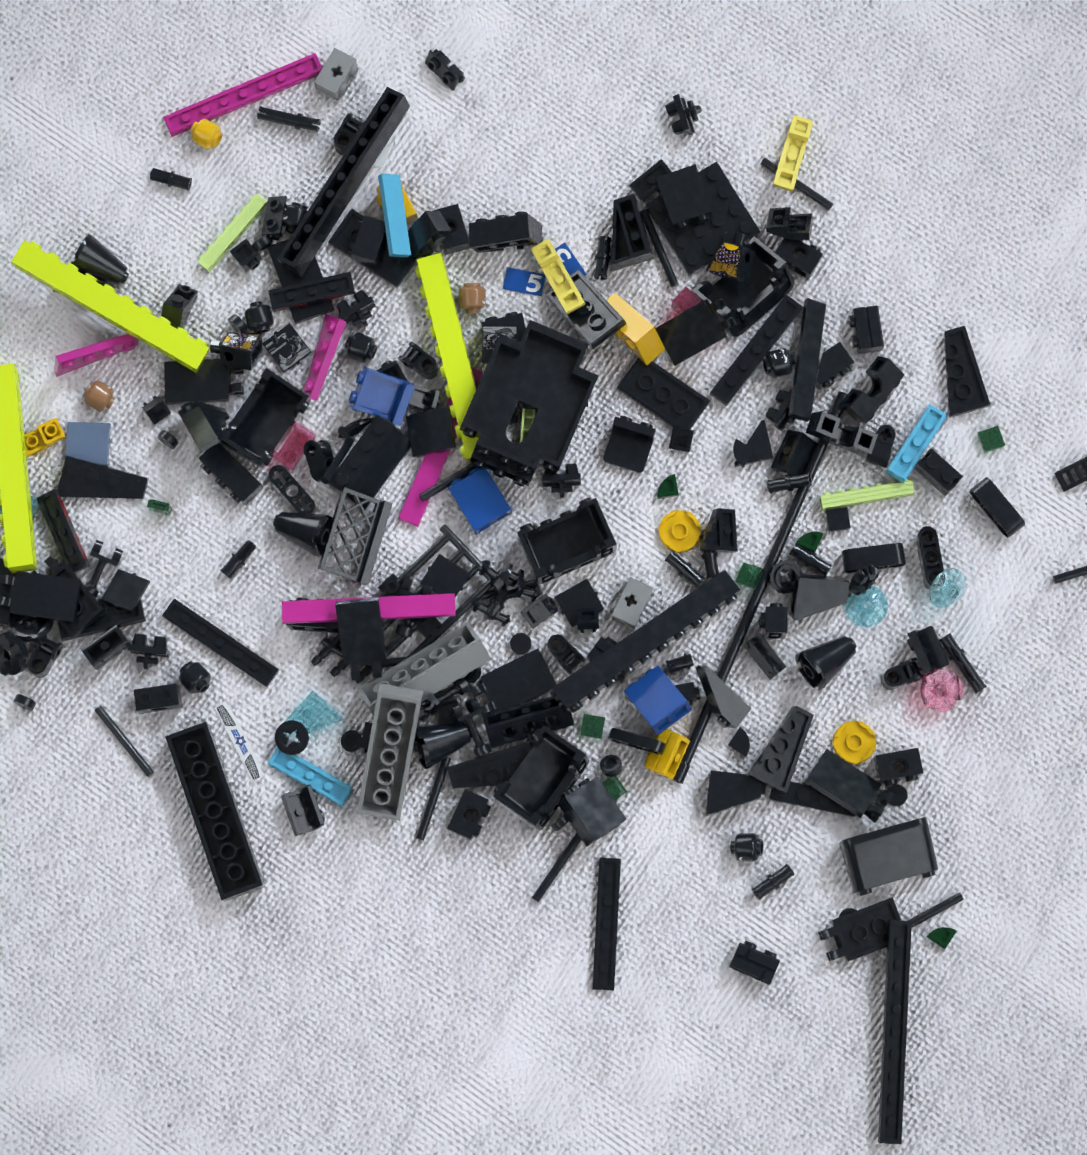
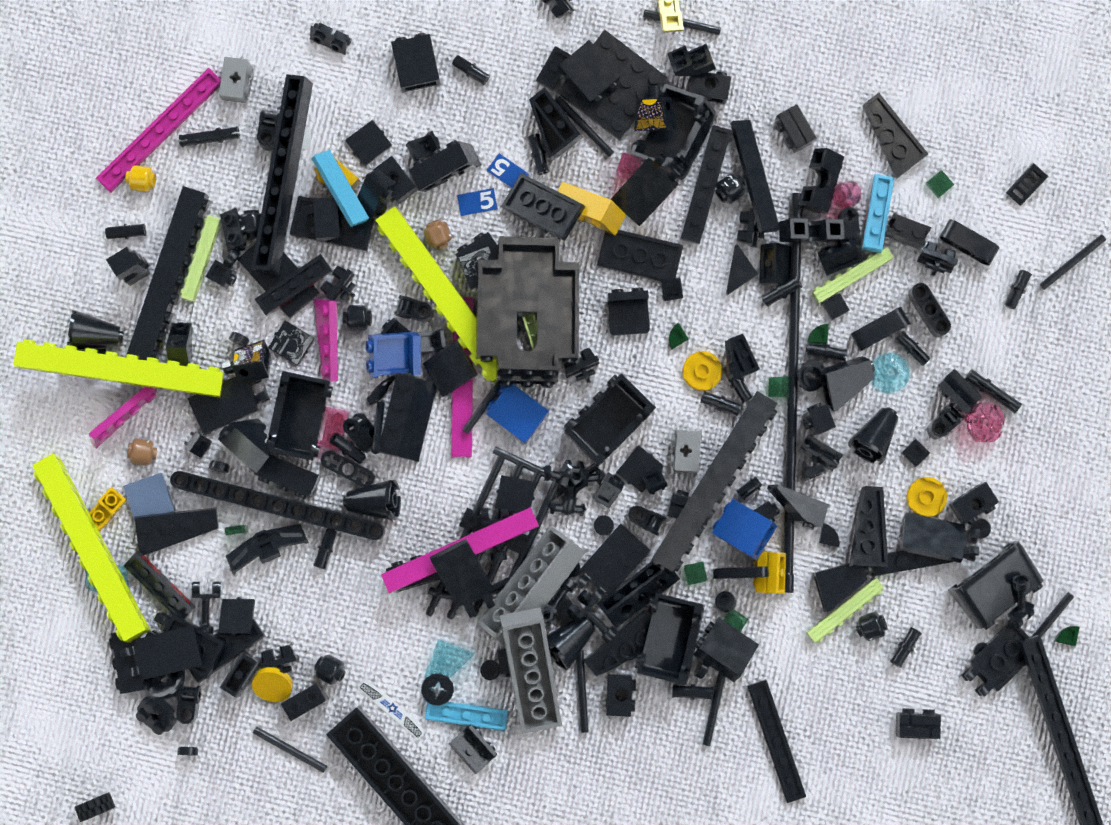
camera: 25 degrees left, 5 degrees up
(132, 669) = (272, 684): none -> yellow tile
(160, 211) = (129, 266): none -> black arch
(181, 533) = (265, 546): none -> black plate
(196, 234) = (169, 274): none -> black brick
(202, 492) = (268, 505): none -> black beam
(220, 643) = (339, 628): black tile -> none
(259, 317) = (256, 326): black head -> none
(300, 469) = (347, 448): none -> black axle
(371, 543) = (437, 489): fence -> none
(441, 184) = (368, 142): none -> black piece
(490, 207) = (423, 146): none -> black bracket
(518, 123) = (415, 62): none -> black brick
(542, 841) = (692, 692): none -> black pin
(558, 276) = (506, 187): light yellow slope -> none
(569, 151) = (470, 69): none -> black axle
(727, 821) = (845, 610): none -> yellowish green piece
(742, 452) = (730, 280): black tile -> none
(750, 672) = (813, 471): none -> black tile
(833, 364) = (777, 170): black slope -> none
(860, 694) = (915, 452): none -> black tile
(861, 470) = (840, 256): none -> black bracket
(863, 579) = (880, 352): black gear -> none
(892, 412) = (846, 194): none -> clear pink head
(898, 589) = (912, 348): none -> black axle
(905, 888) = (1021, 584): none -> black bar
(947, 588) = (955, 330): clear light blue dish -> none
(957, 513) = (937, 261): none -> black hips
(1028, 572) = (1017, 289): none -> black axle

